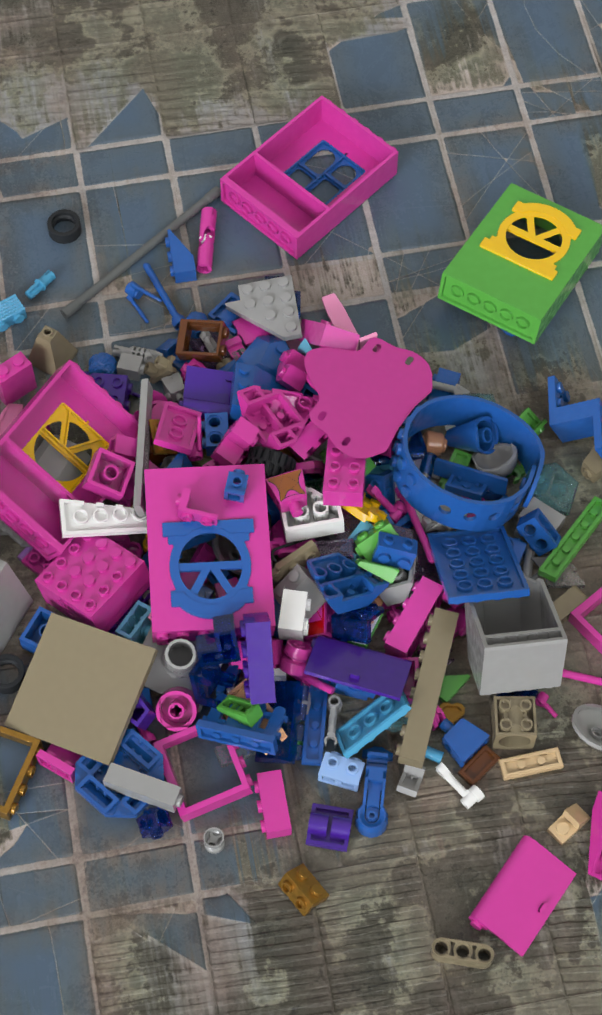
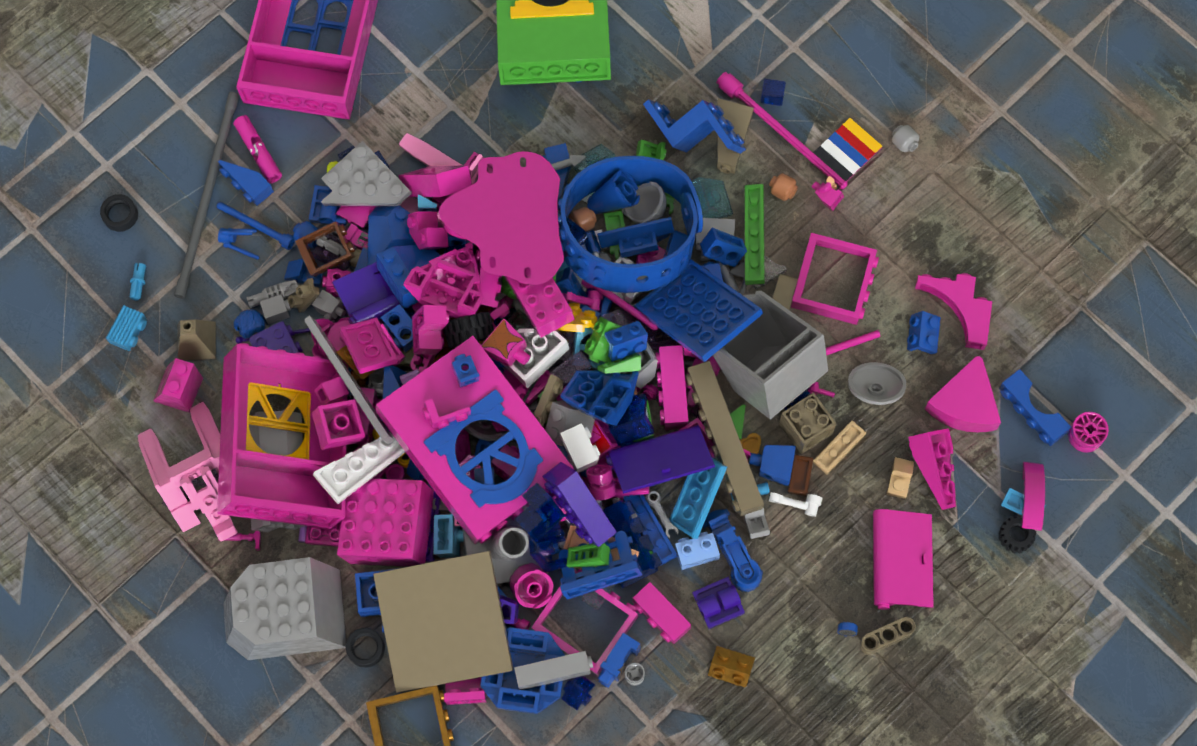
camera: 30 degrees left, 10 degrees up
(205, 816) = (617, 658): none -> blue hips
(429, 923) = (847, 629): none -> blue tile

